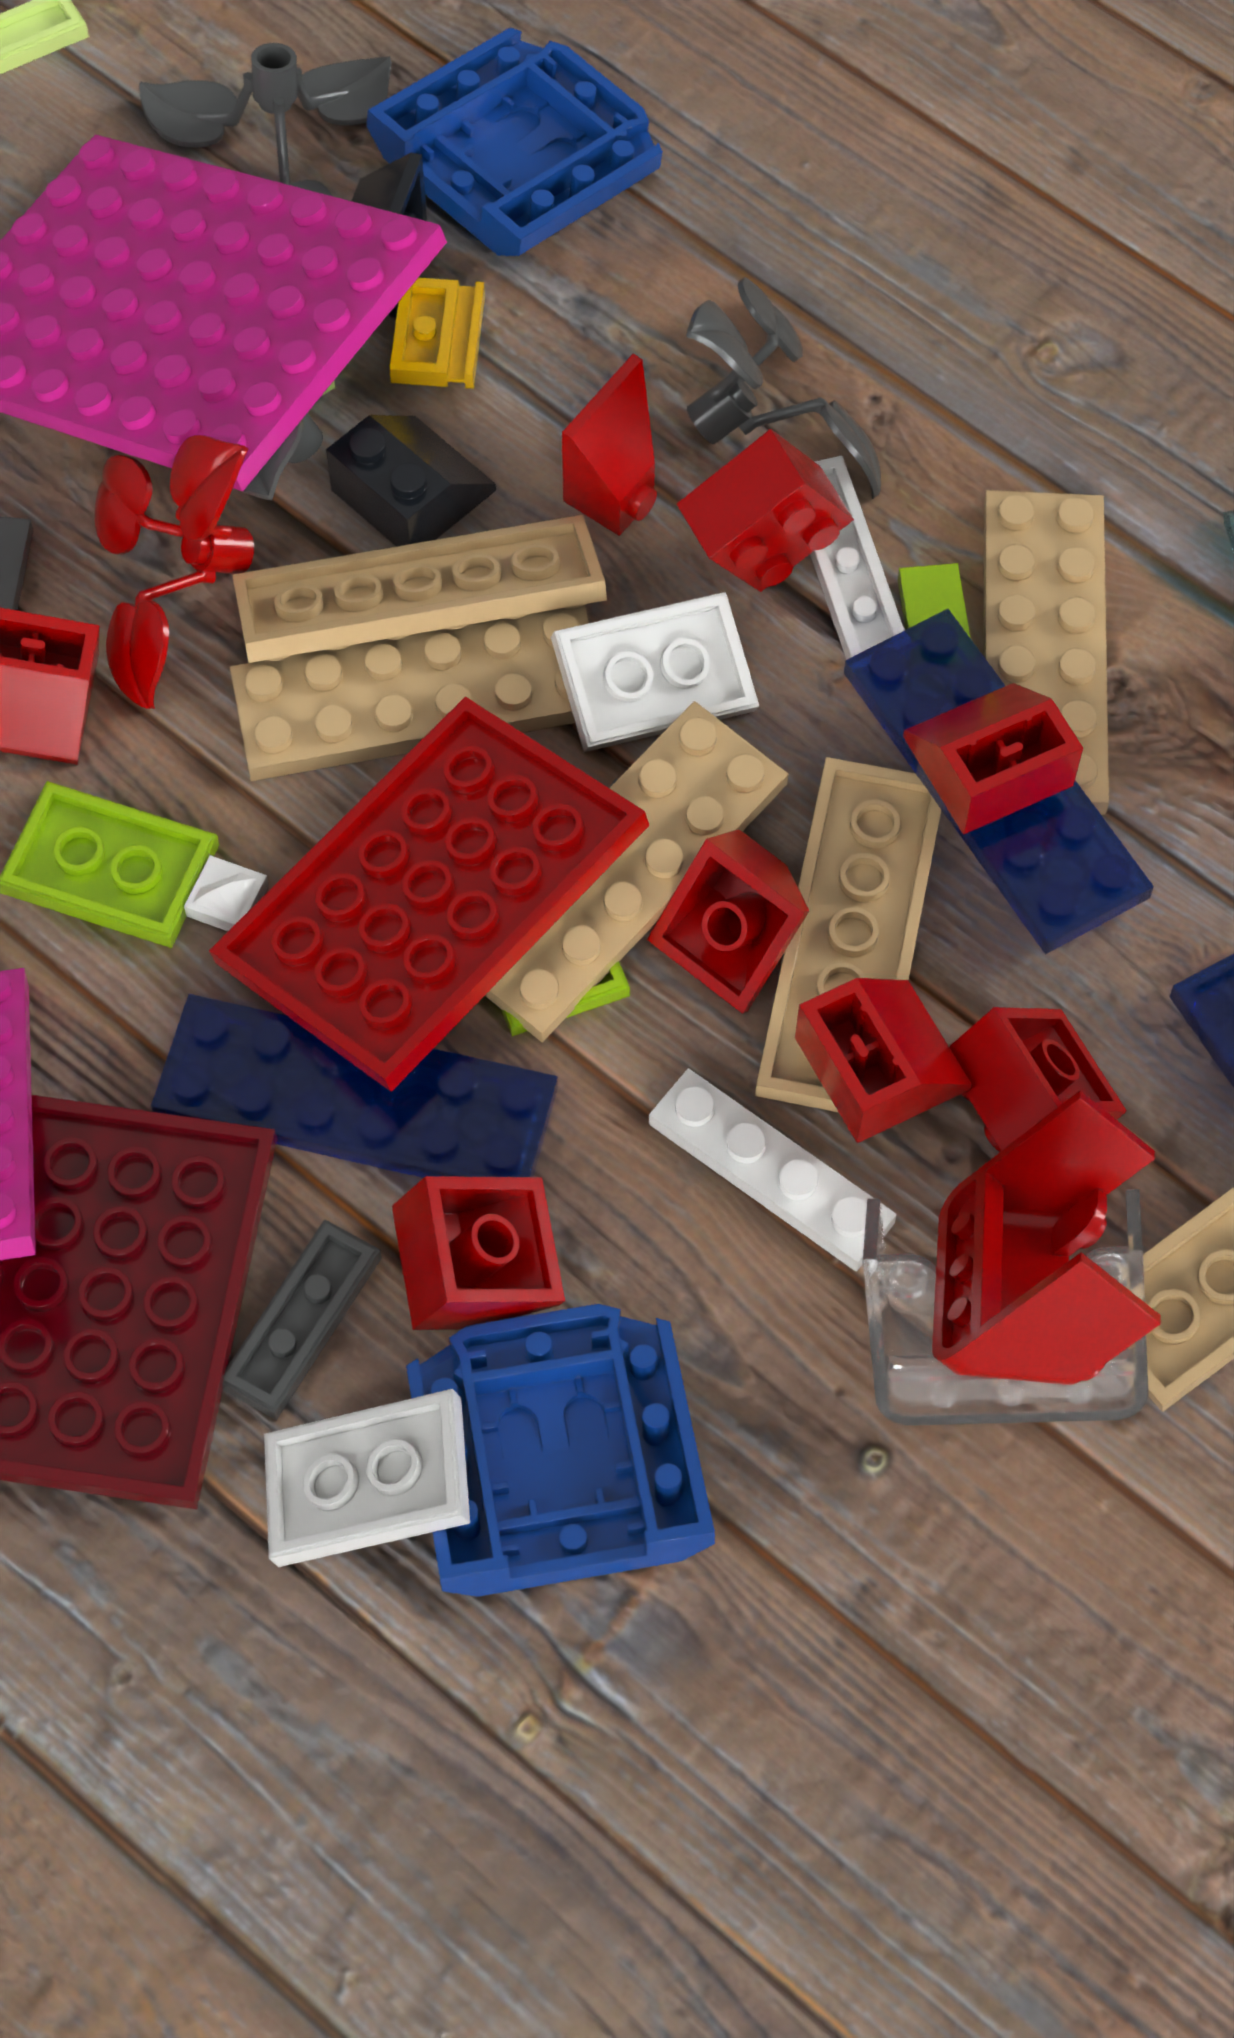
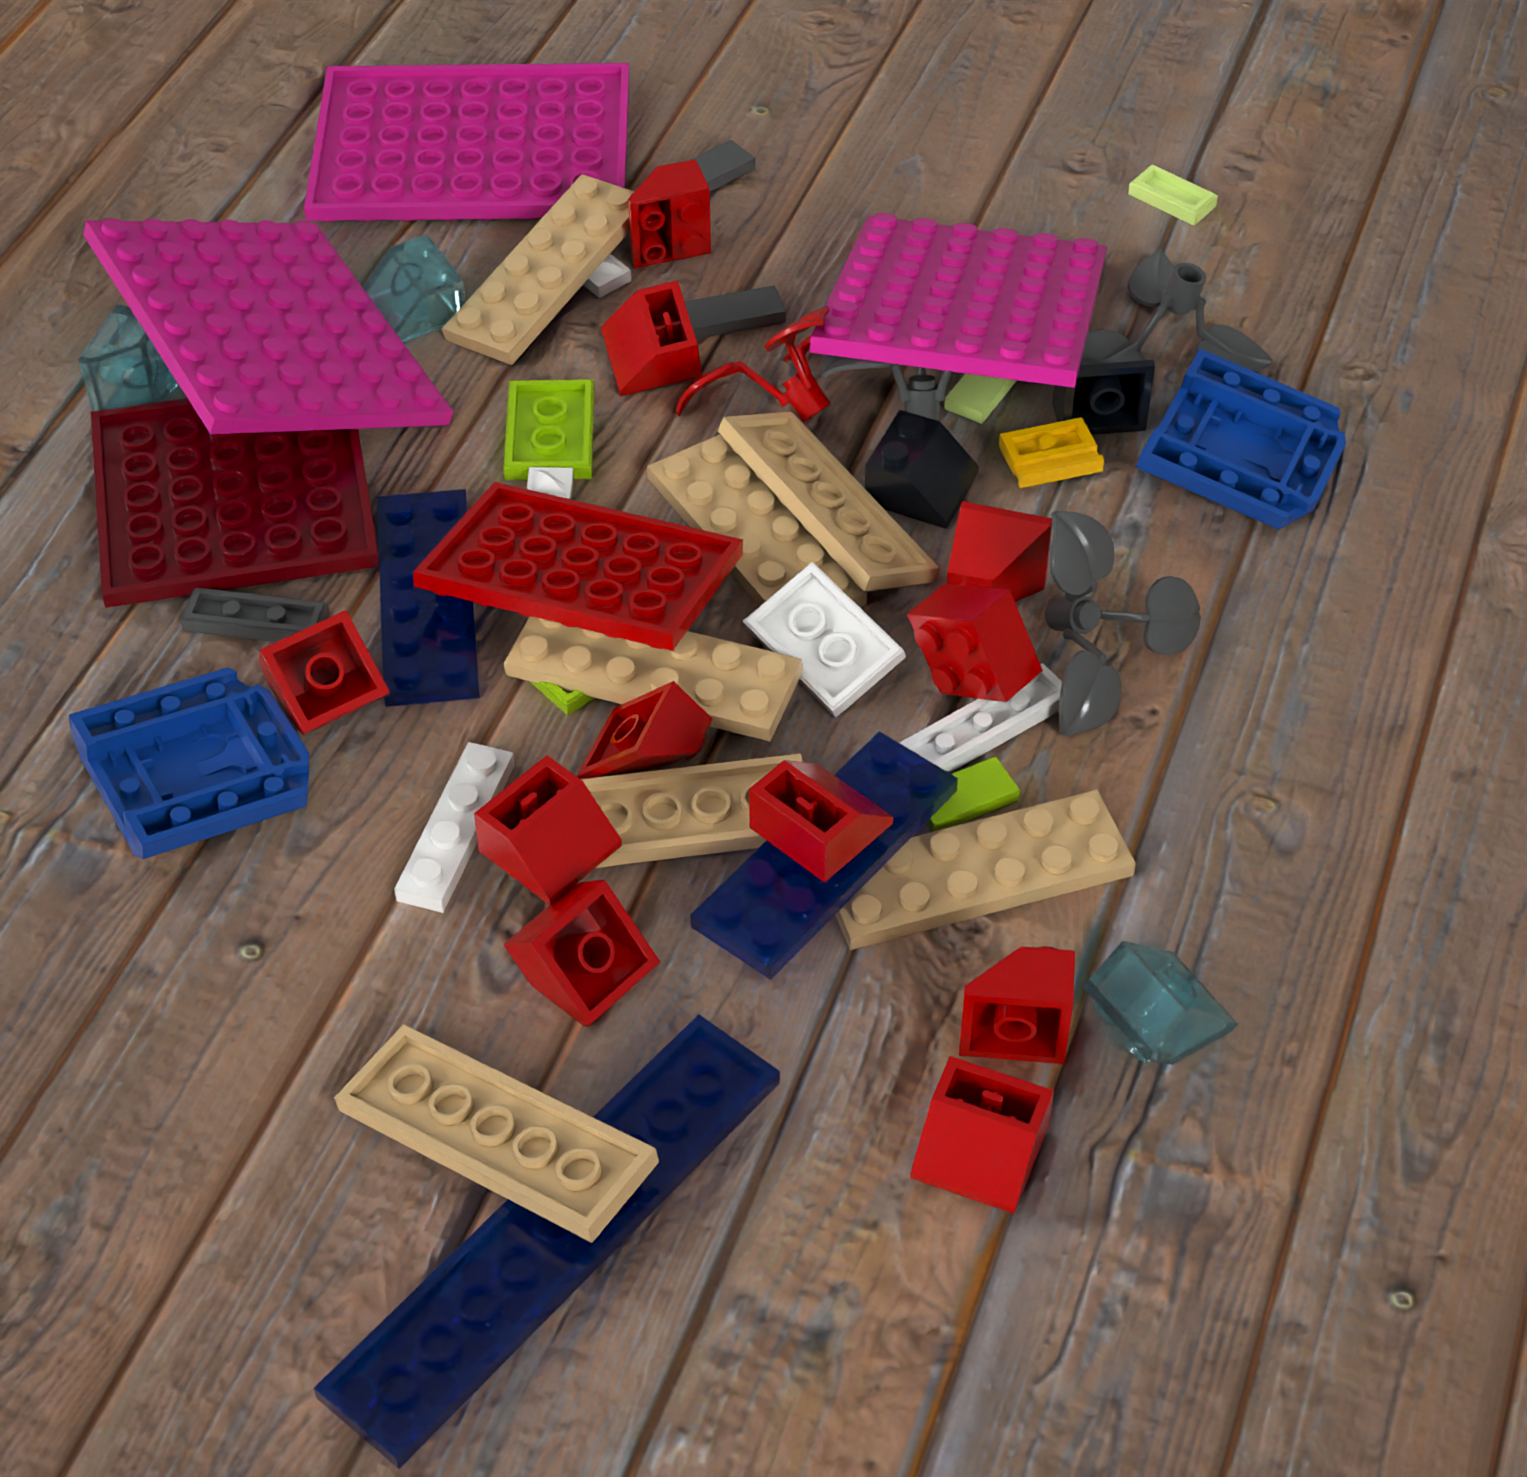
camera: 70 degrees right, 15 degrees down
(366, 1478) = (138, 667): white tile -> none
(922, 1391) = (333, 957): clear windscreen -> none
(1004, 1243) = (409, 963): red windscreen -> none

